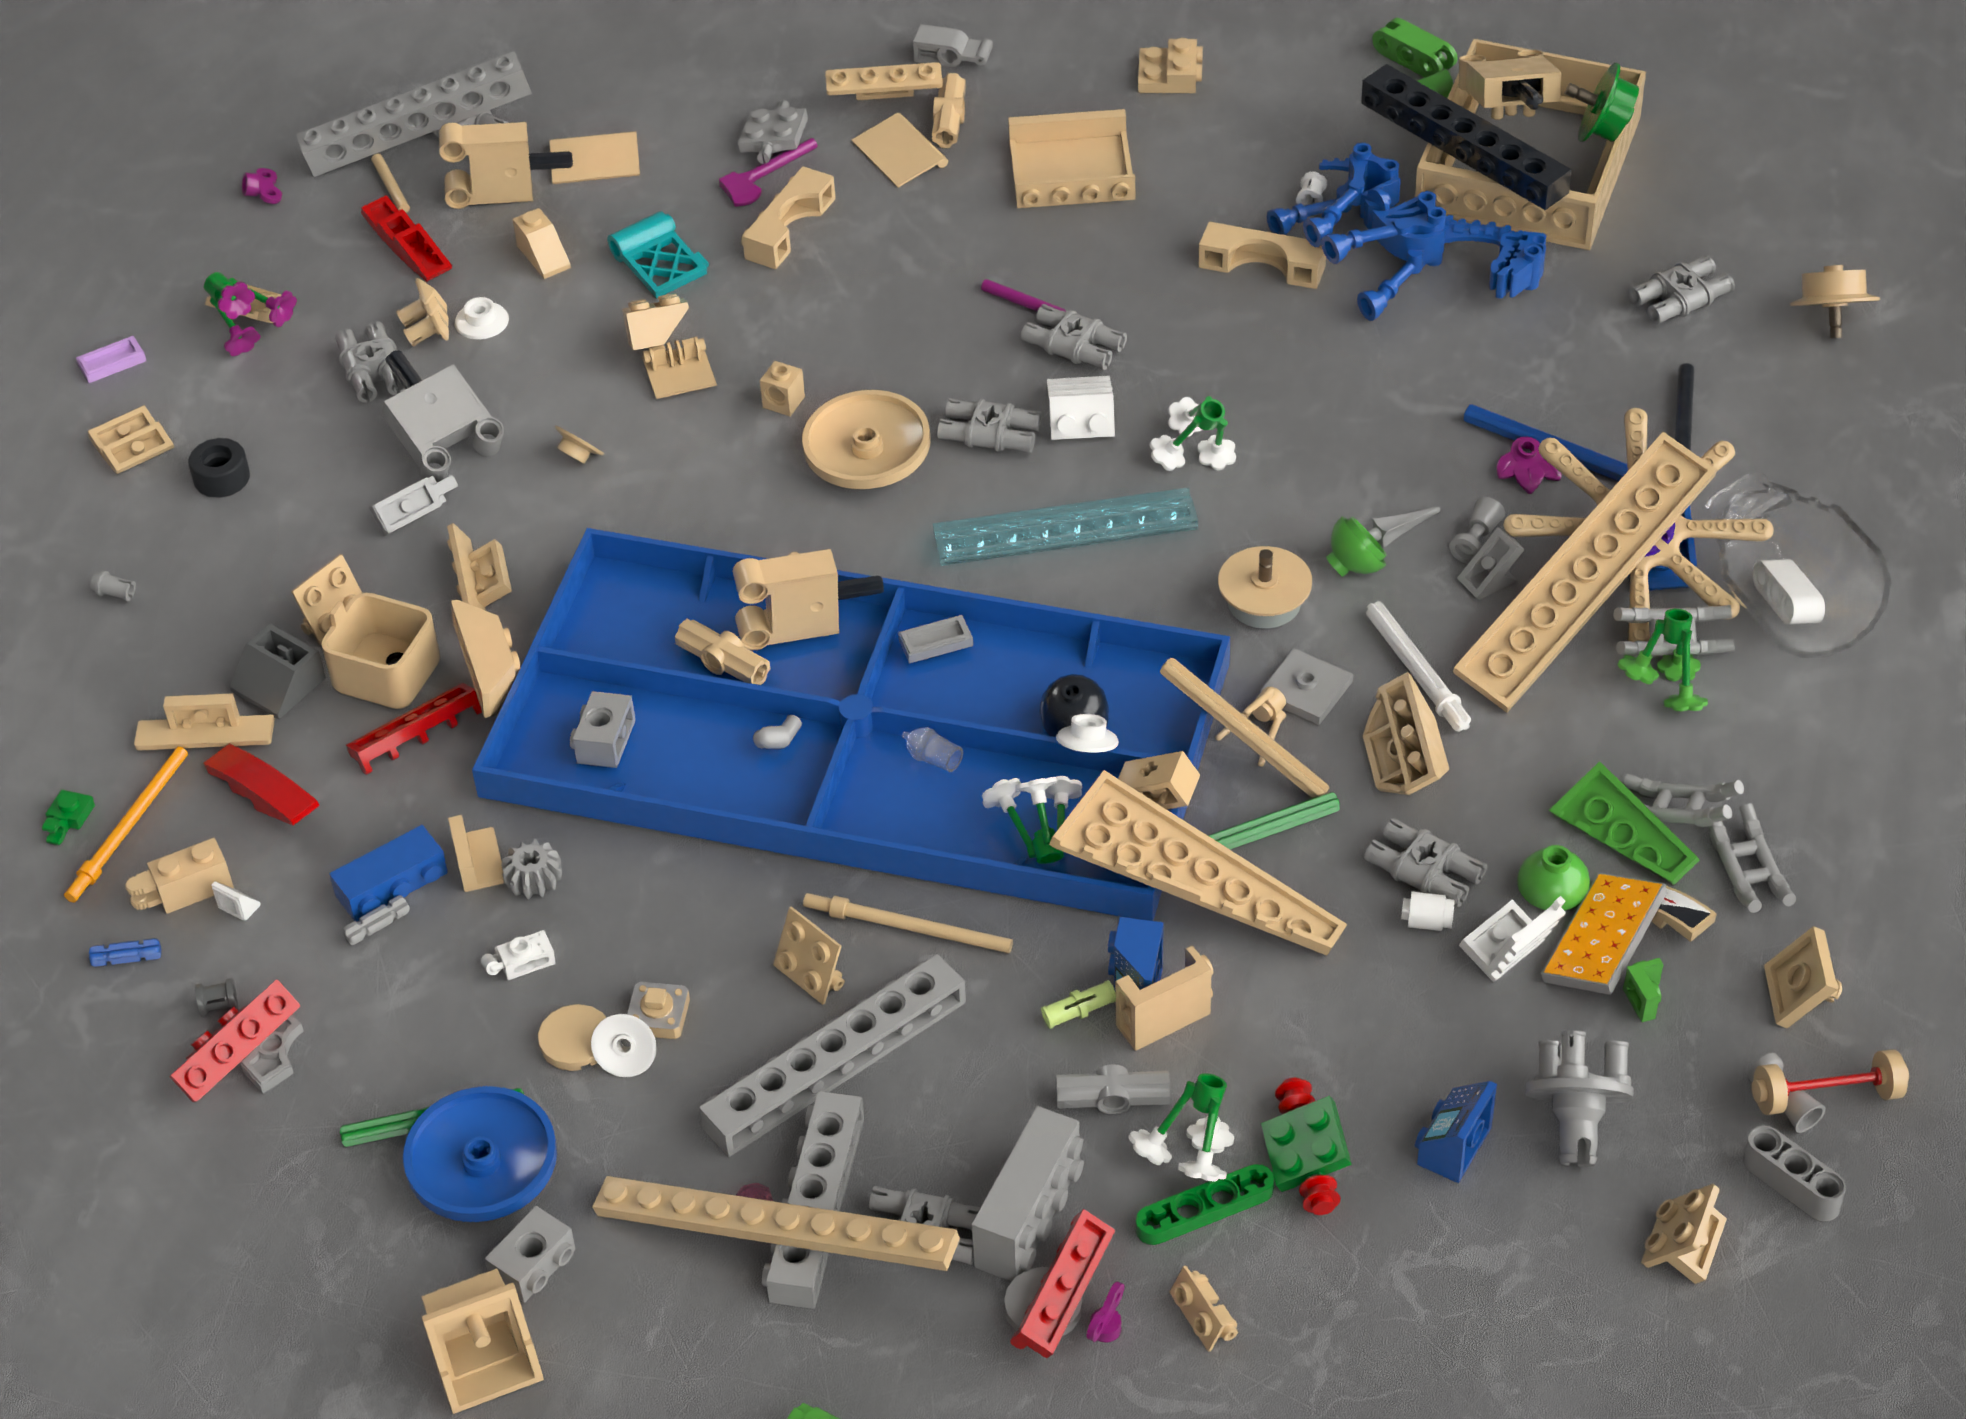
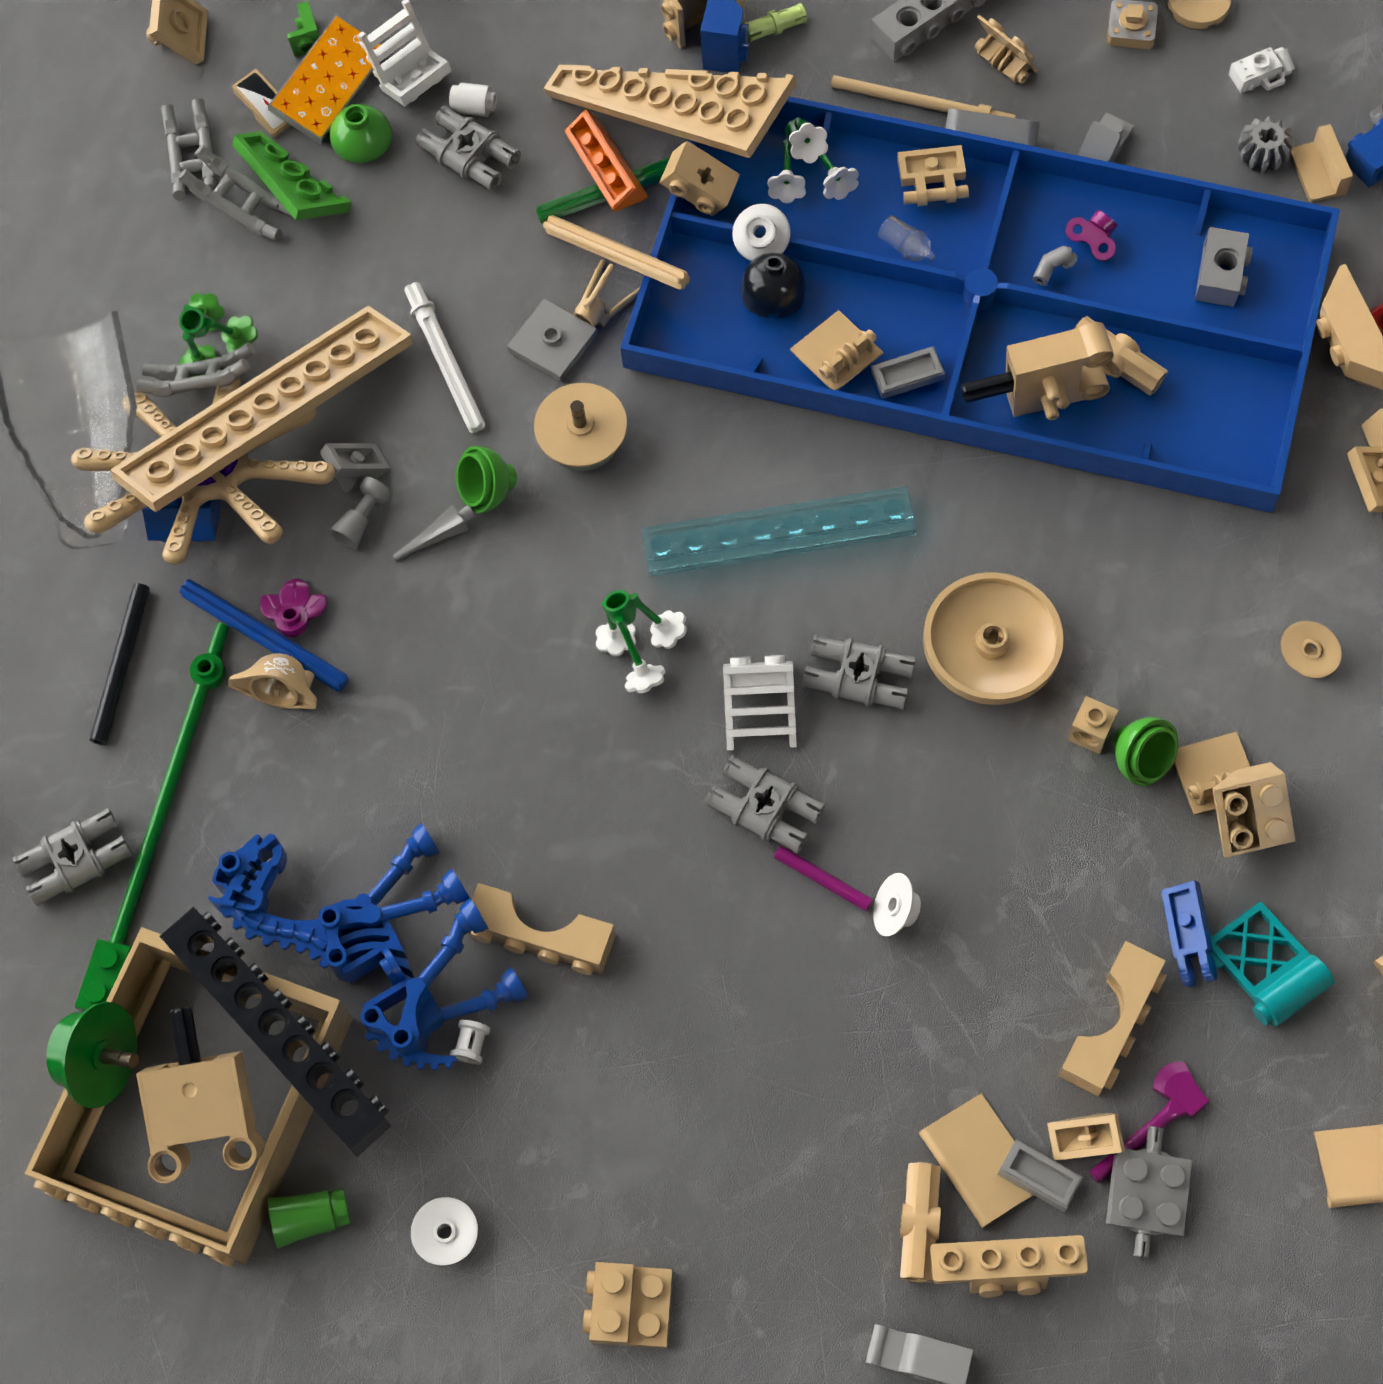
camera: 175 degrees left, 20 degrees up
(707, 879) = (1106, 138): none -> light grey slope
(719, 268) = (1189, 931): none -> hinge
(727, 761) = (1095, 233): none -> magenta piece
(740, 368) = (1145, 749): none -> bright green piece
(817, 154) = (1086, 1136): none -> tan slope
(818, 881) = (993, 126): none -> light grey beam
(855, 139) = (1040, 1176): none -> light grey tile
(901, 813) = (933, 166): none -> tan plate
(961, 271) = (895, 905): none -> white piece
(1007, 651) = (837, 350): none -> tan hinge
(1071, 158) = (762, 1114): tan panel -> none
(1262, 836) = (605, 161): none -> orange slope
(1315, 93) = (431, 1219): none -> white piece
(1403, 739) = (467, 249): tan wedge -> none
(1413, 47) = (304, 1319): bright green piece -> none
(1527, 399) = (277, 682): none -> tan hat
(1627, 236) = (110, 955): none -> green bar
(1788, 591) = (76, 406): white beam -> none

